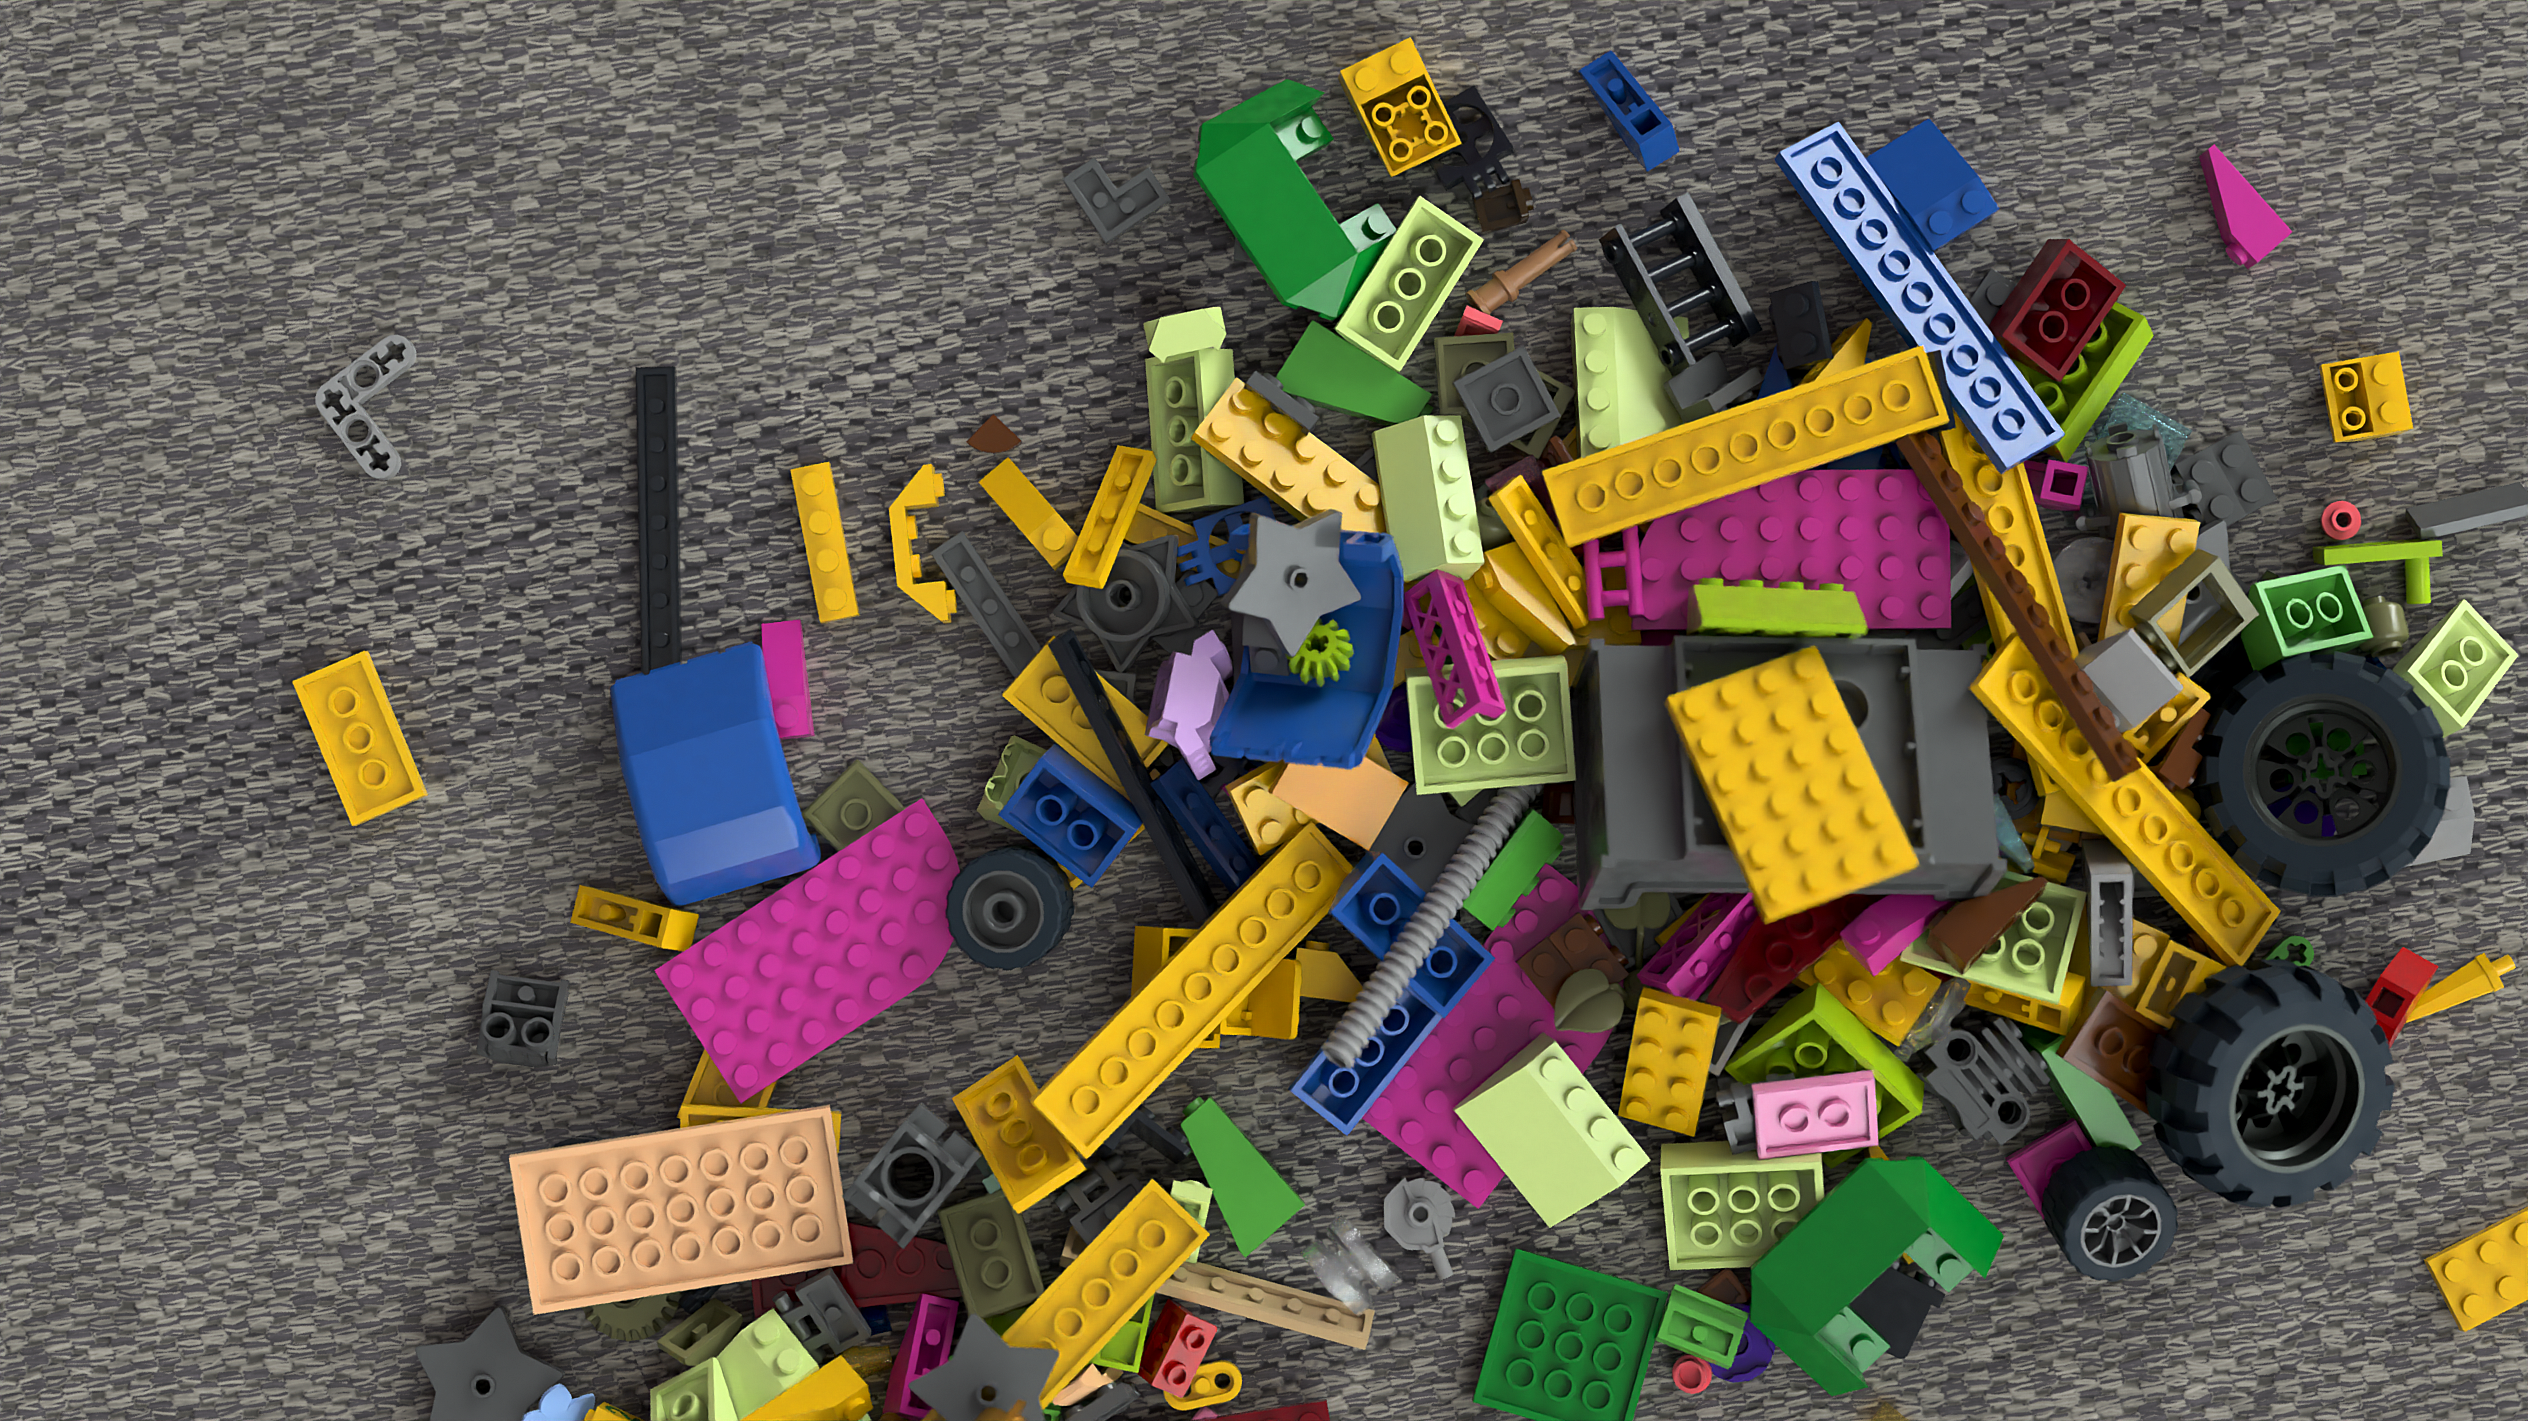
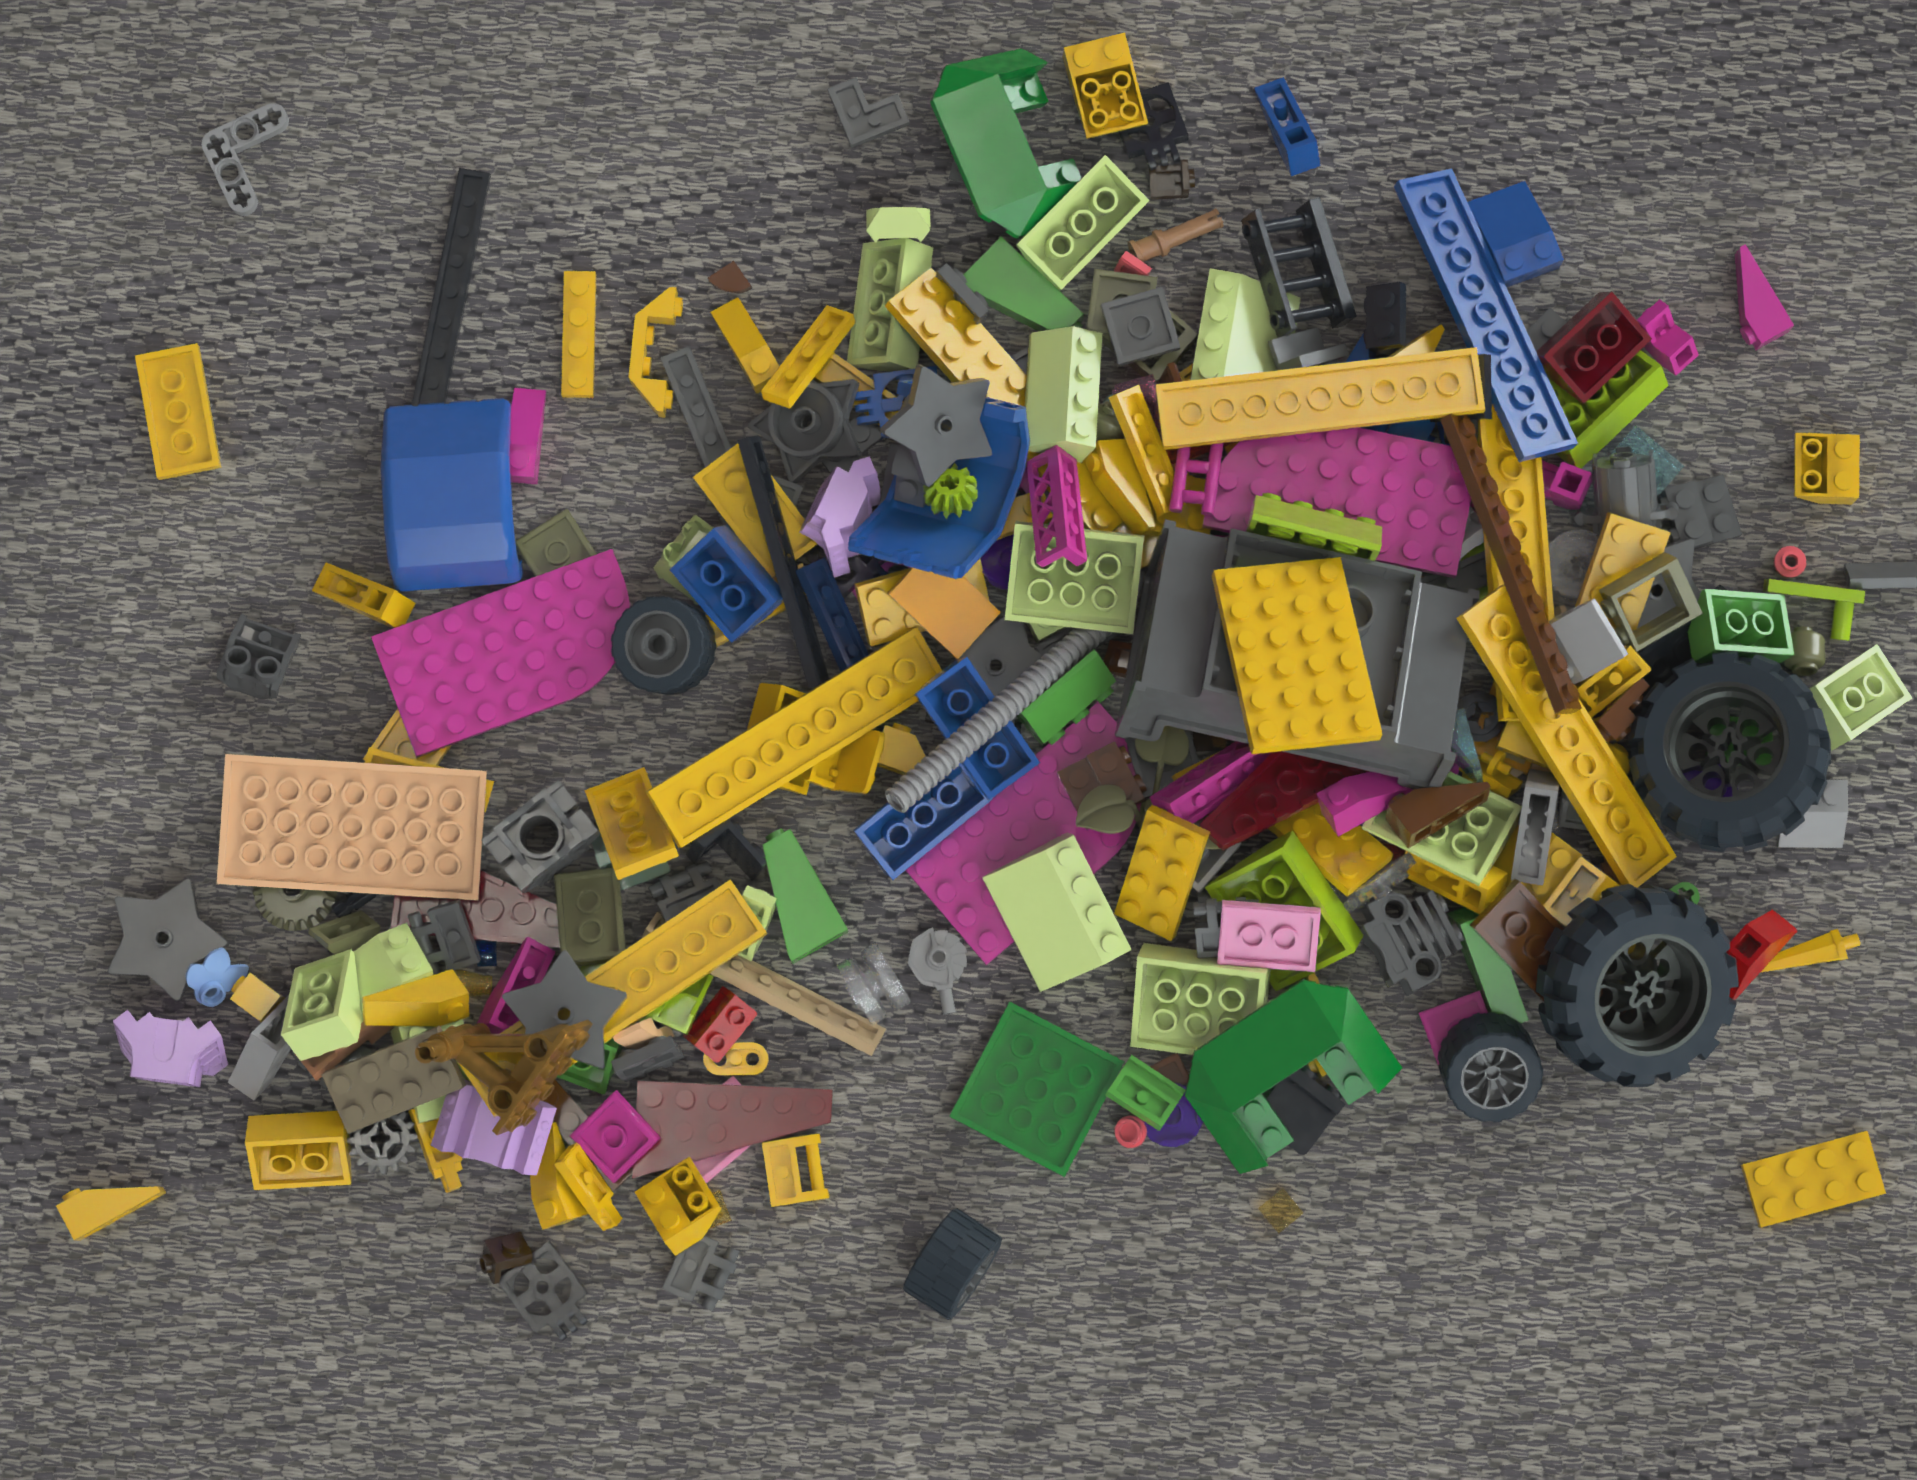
camera: 10 degrees right, 5 degrees down
(2149, 286) = (1669, 343): none -> dark pink brick

